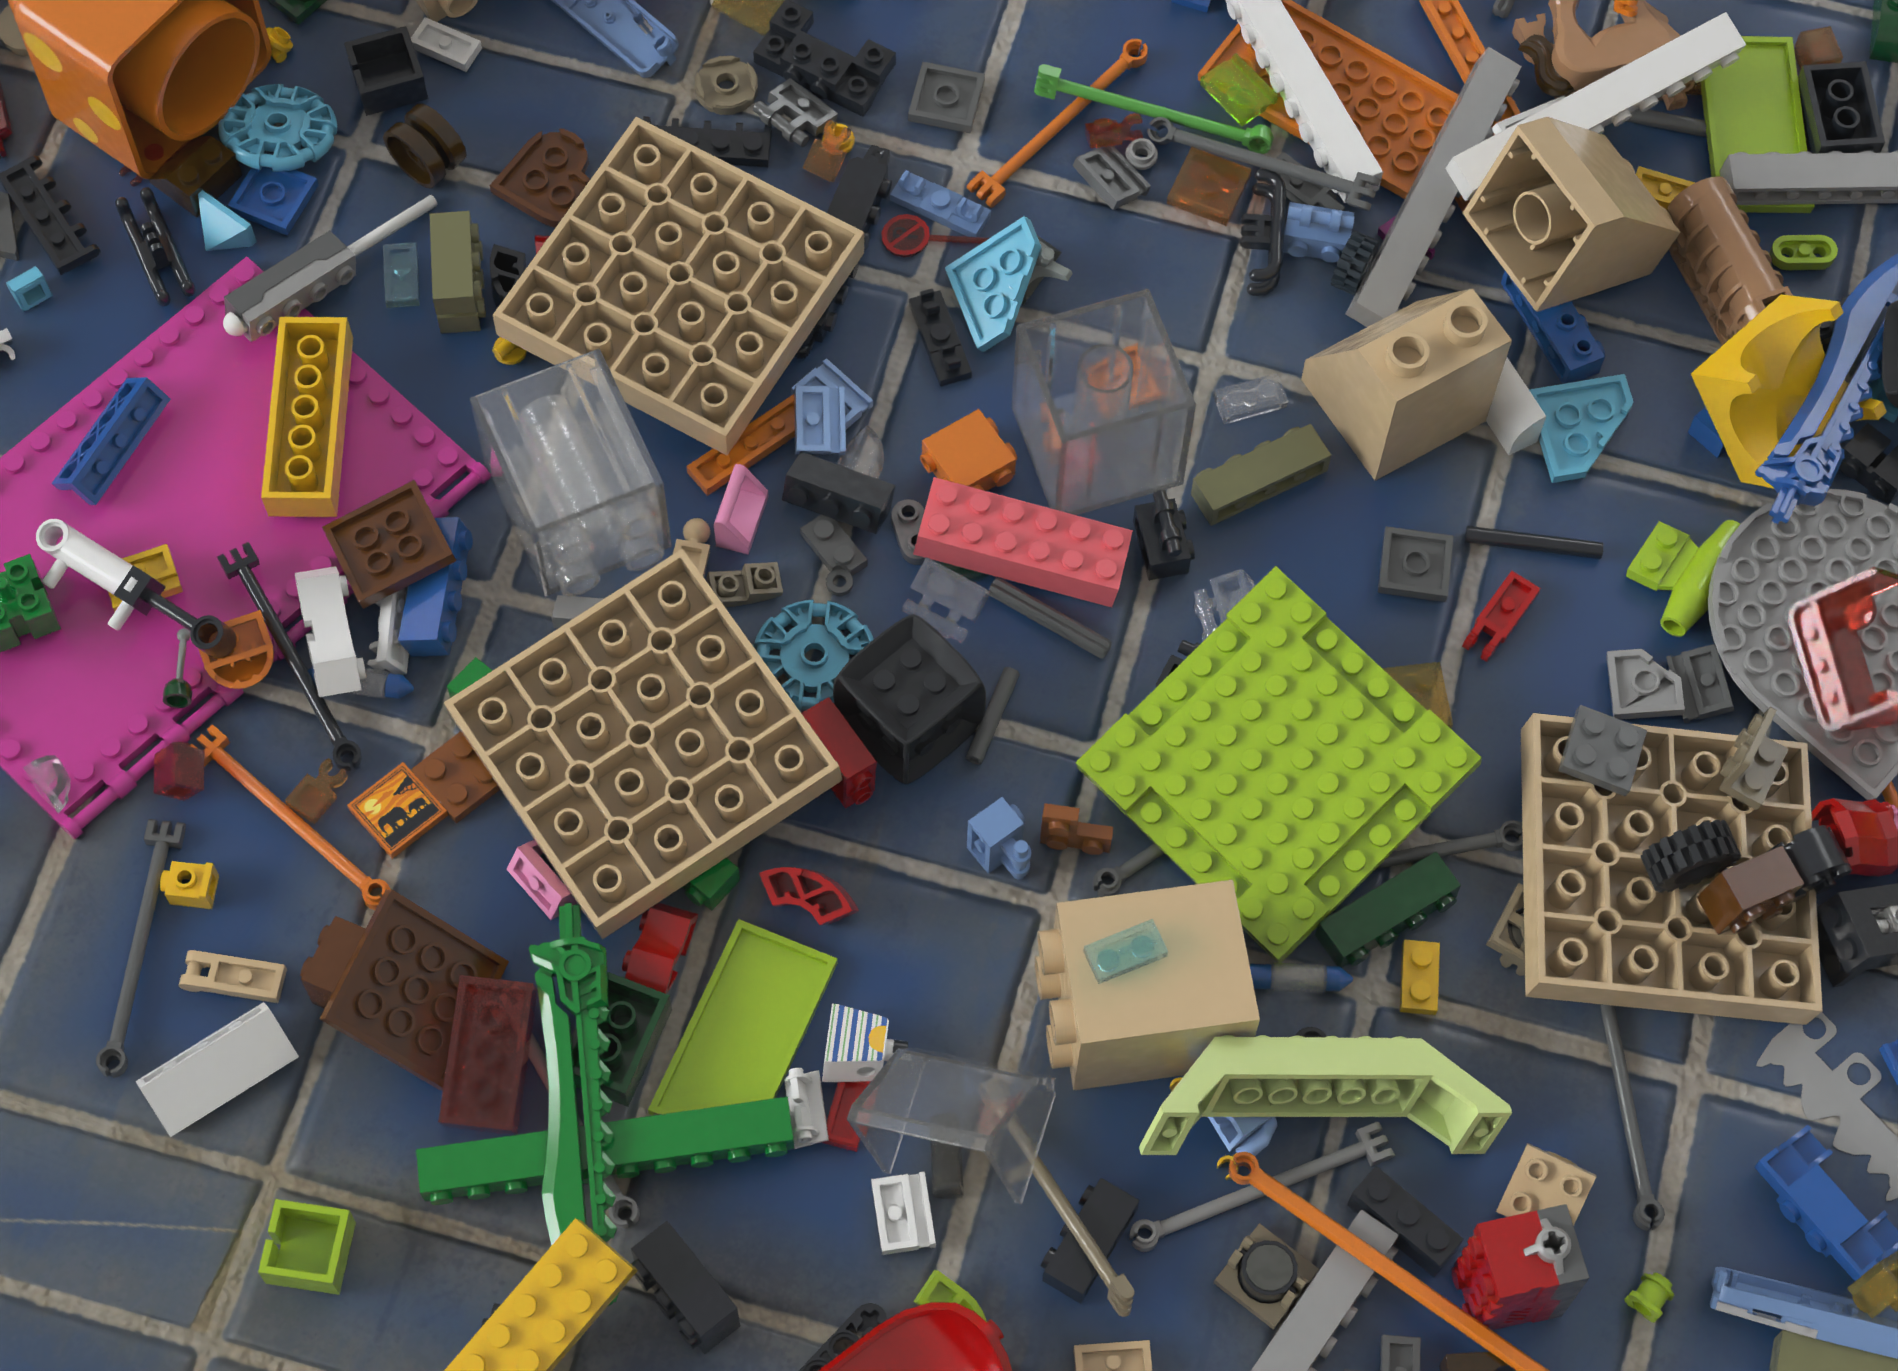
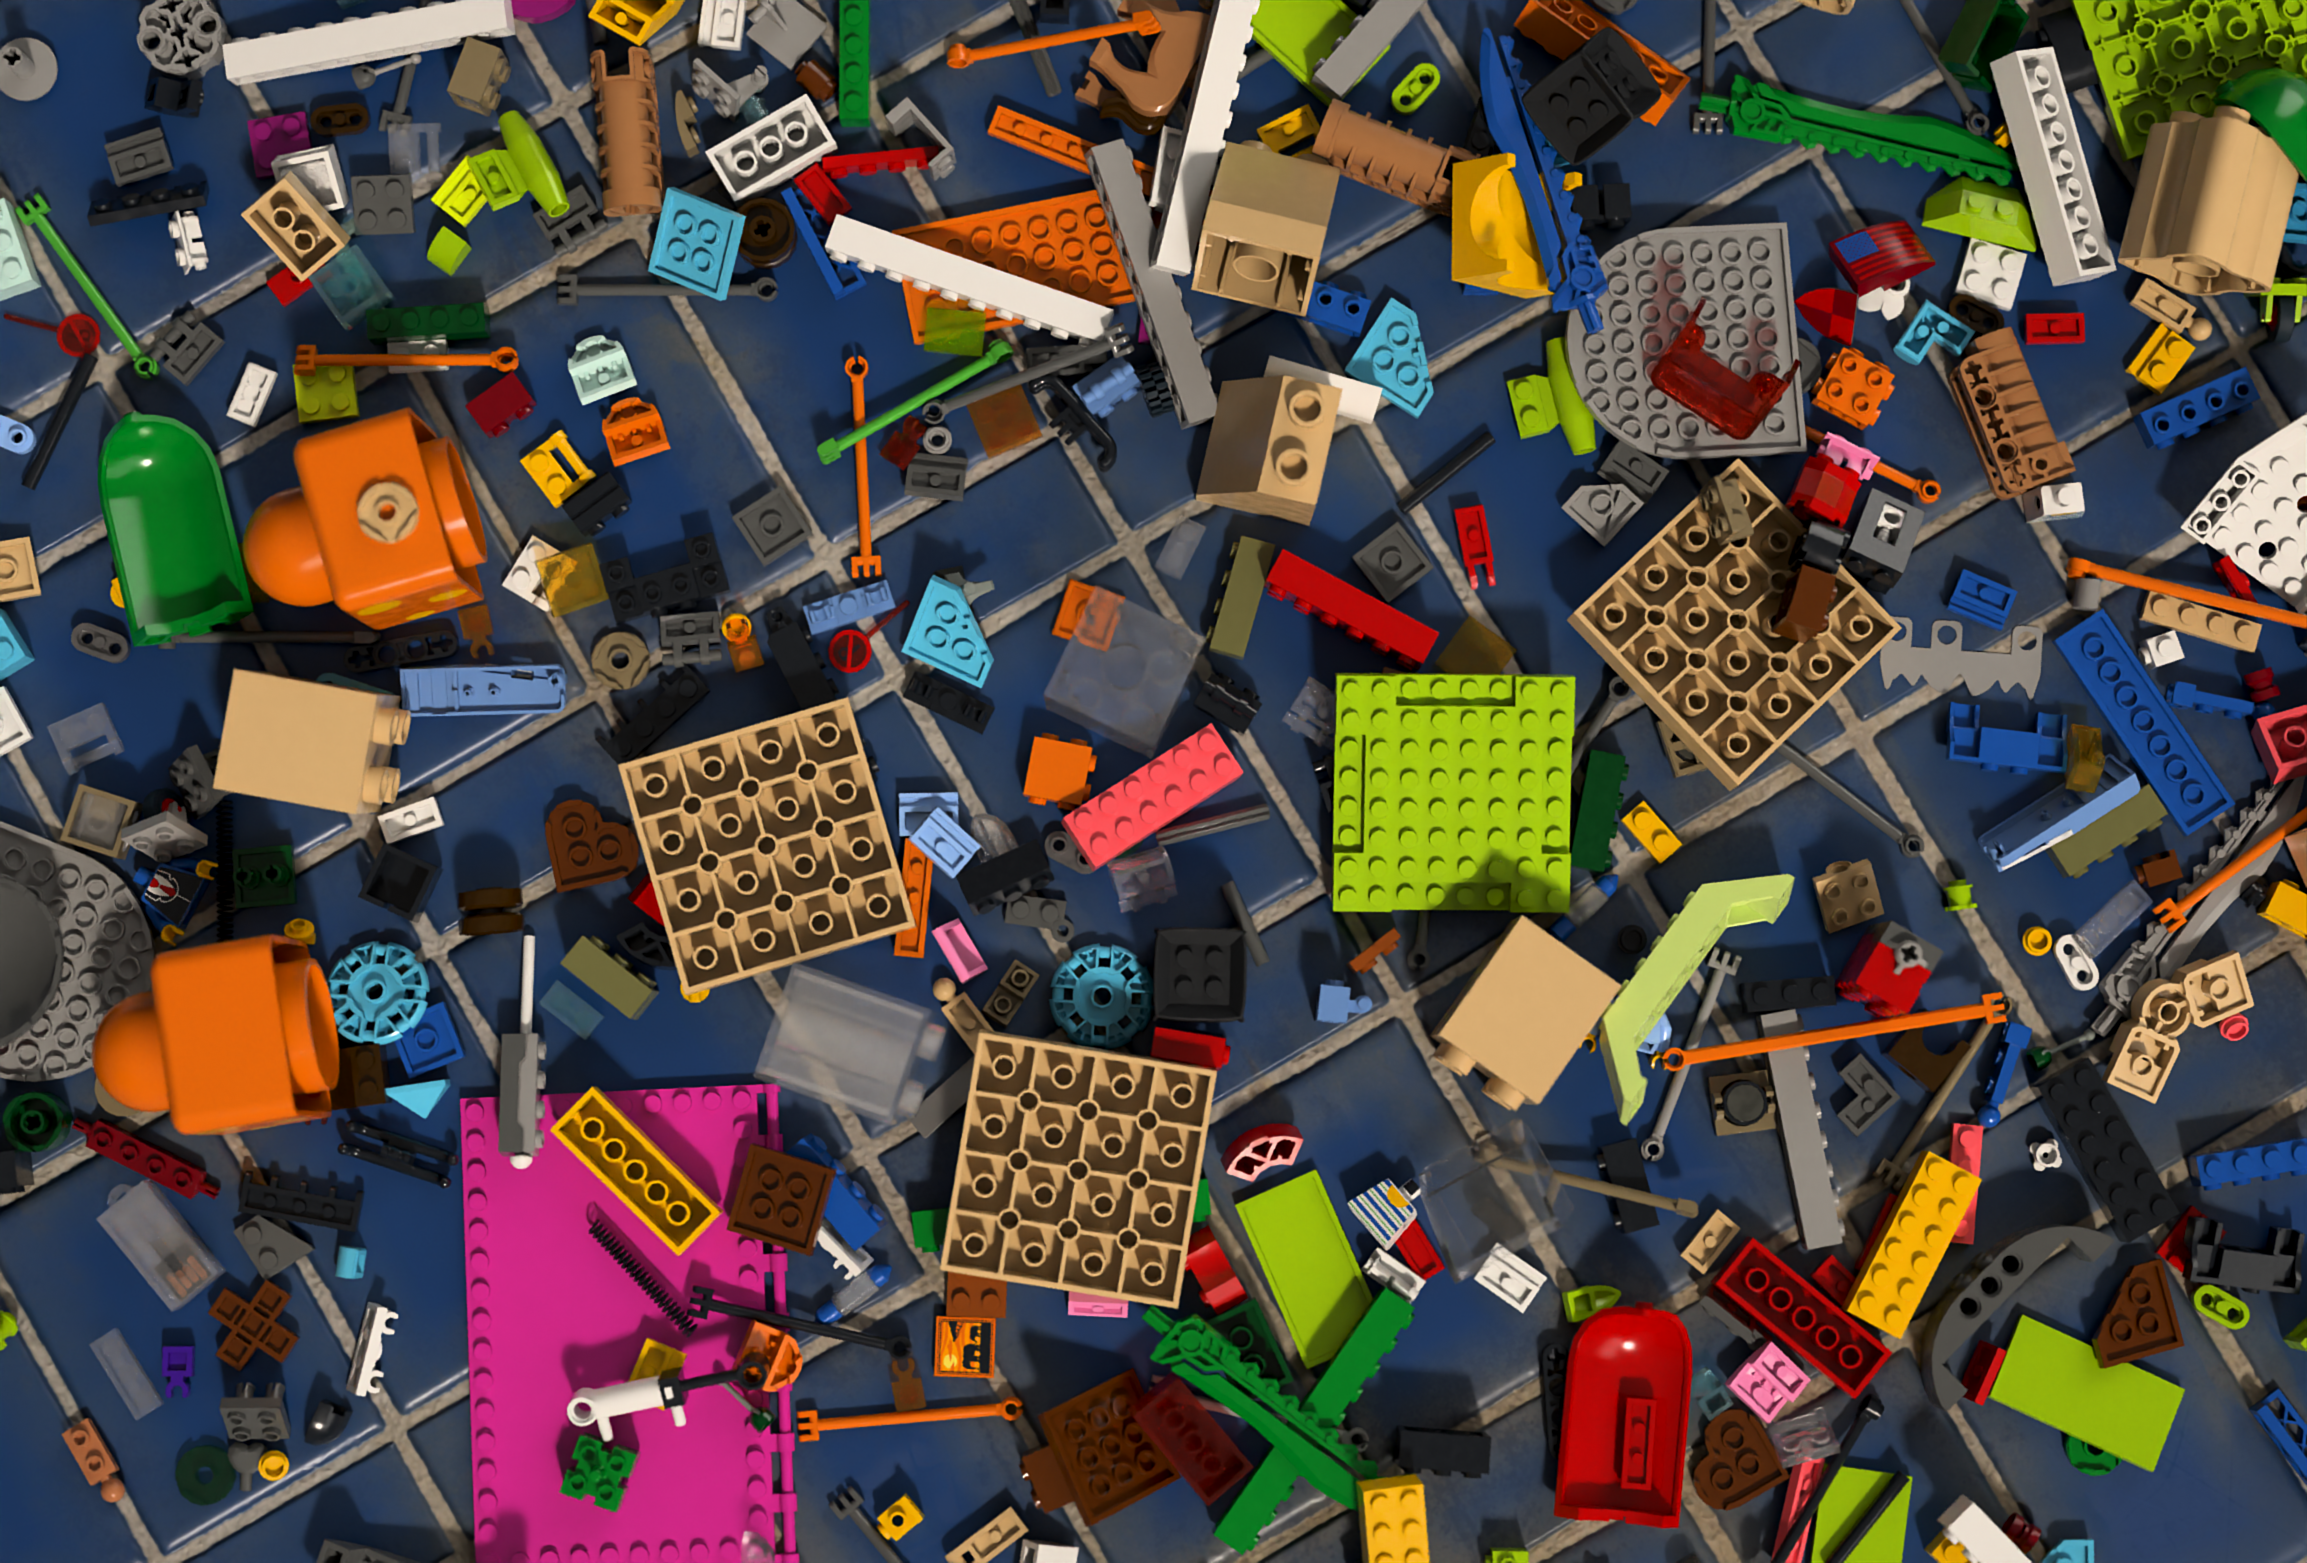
camera: 50 degrees left, 20 degrees up
(112, 439) = (533, 1306): blue fence -> none
(179, 771) = (815, 1461): clear red brick -> none
(216, 504) = (640, 1278): none -> black piece
(330, 641) = (810, 1291): white brick -> none
(1125, 951) = (1510, 1026): clear light blue plate -> none
(1341, 553) = (1350, 610): none -> red brick
(1602, 750) = (1635, 595): dark grey plate -> none
(1690, 856) = (1754, 621): black tyre -> none

